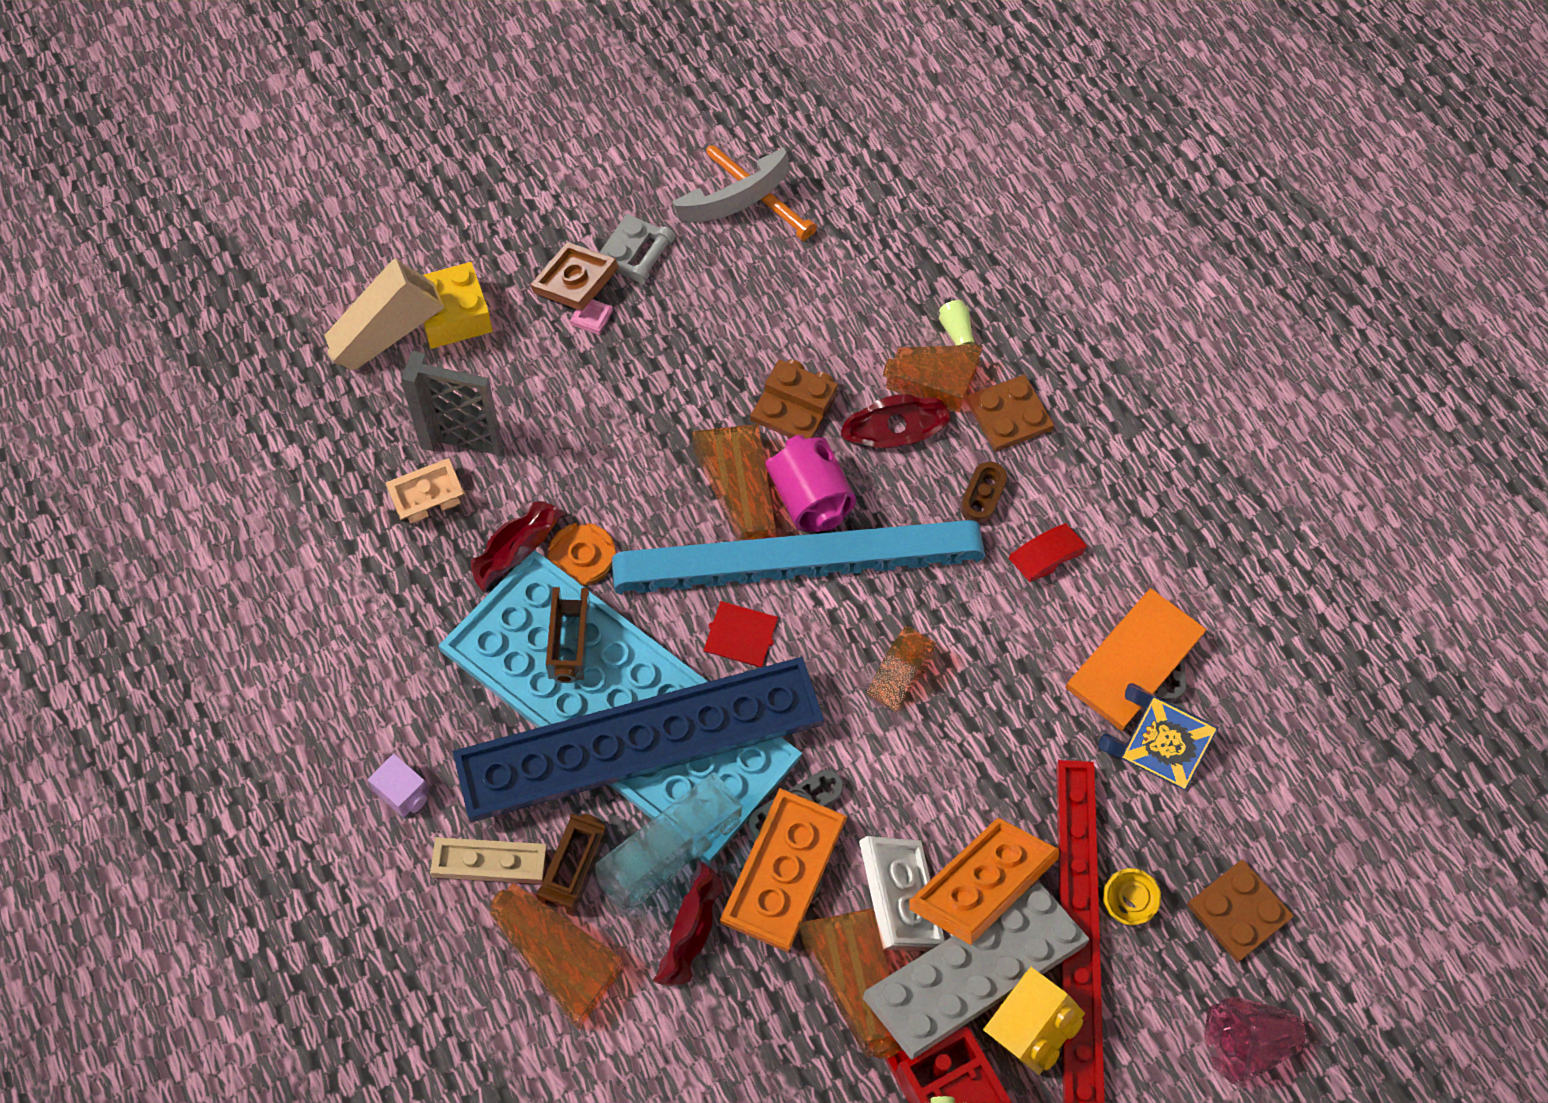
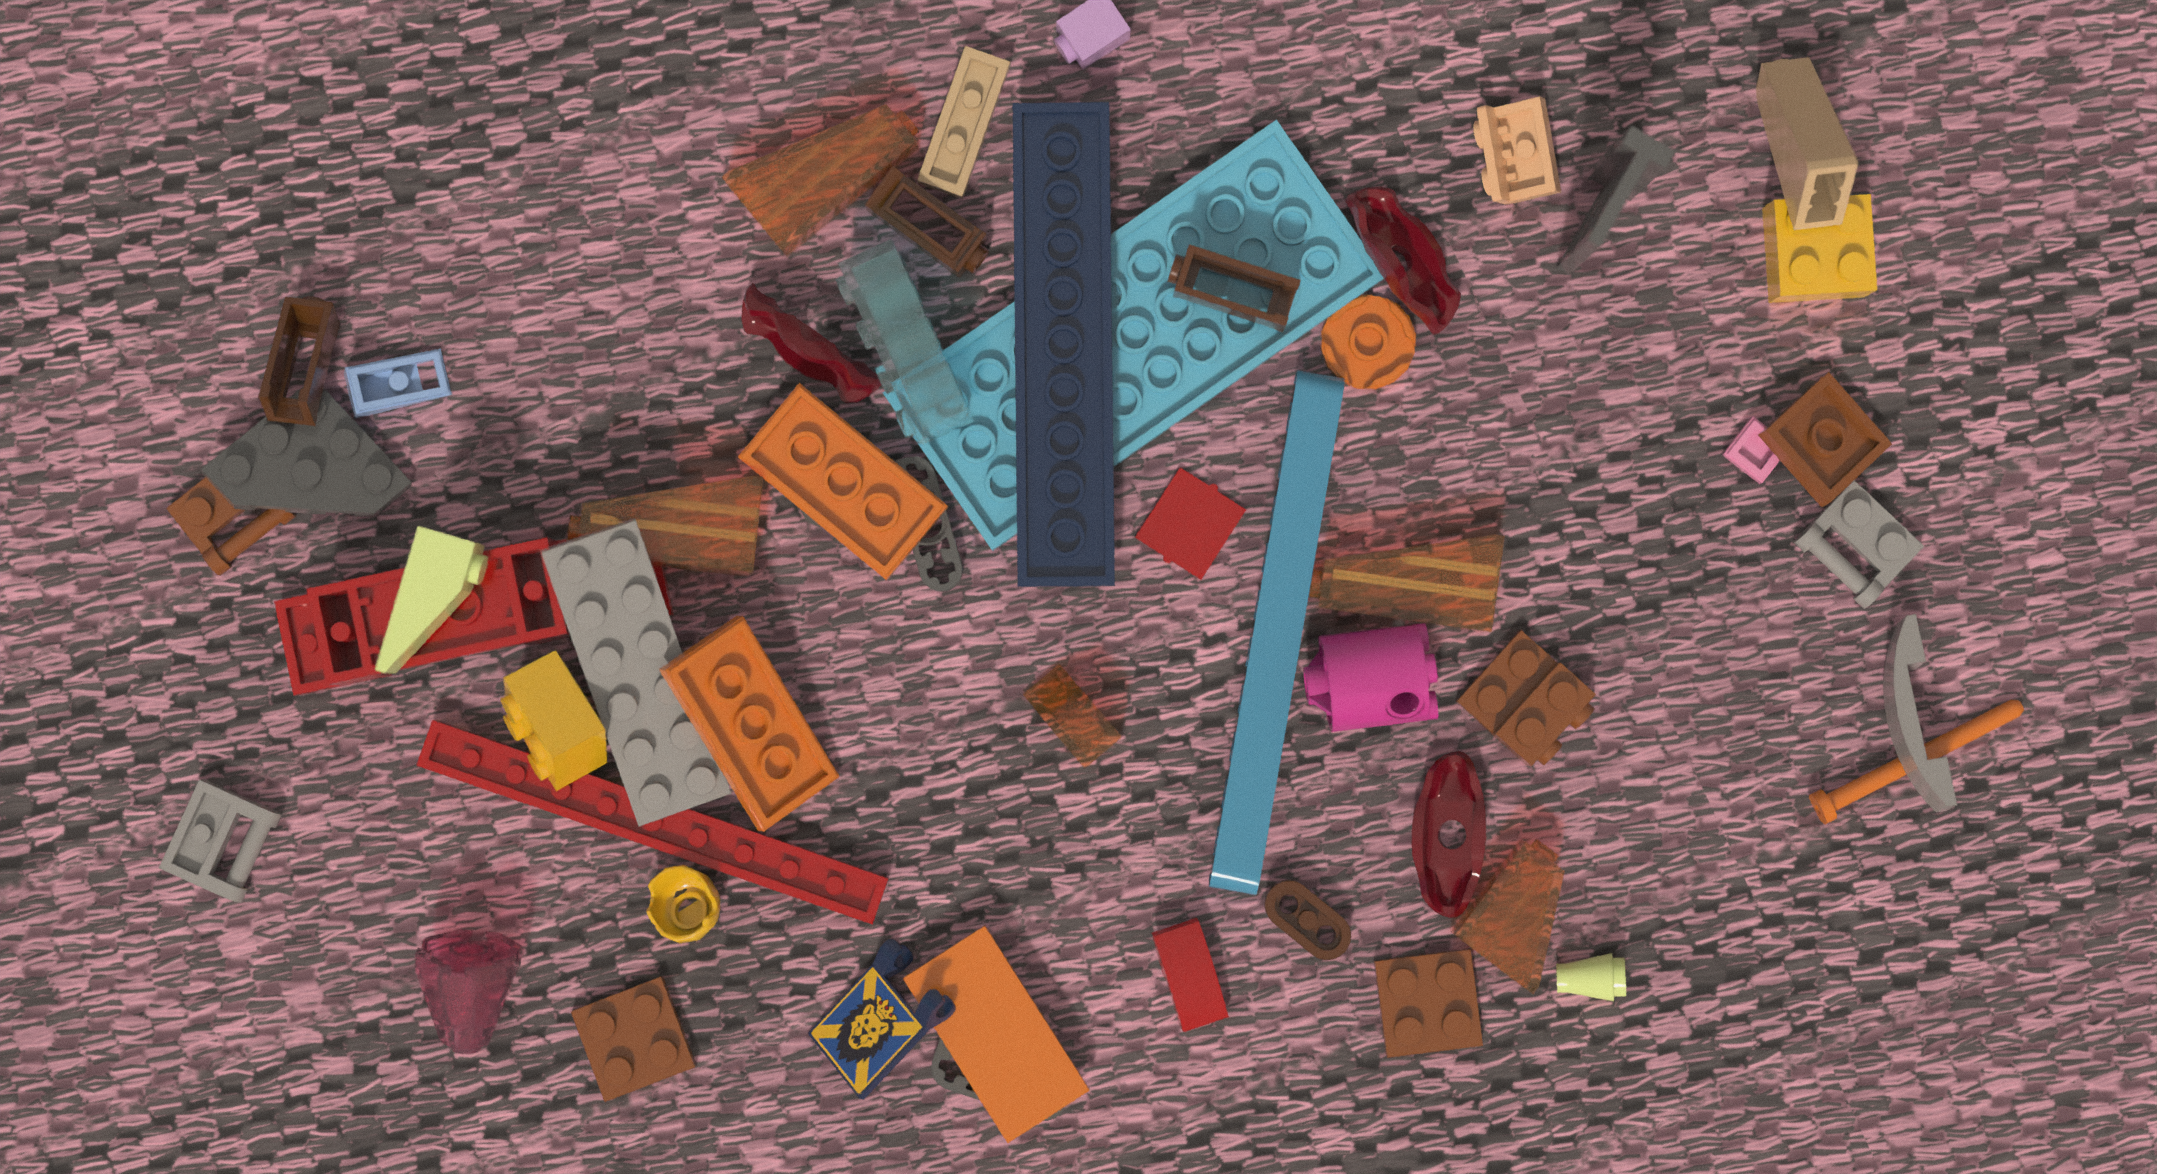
camera: 110 degrees right, 25 degrees up
(894, 875) = (789, 615): white tile -> none

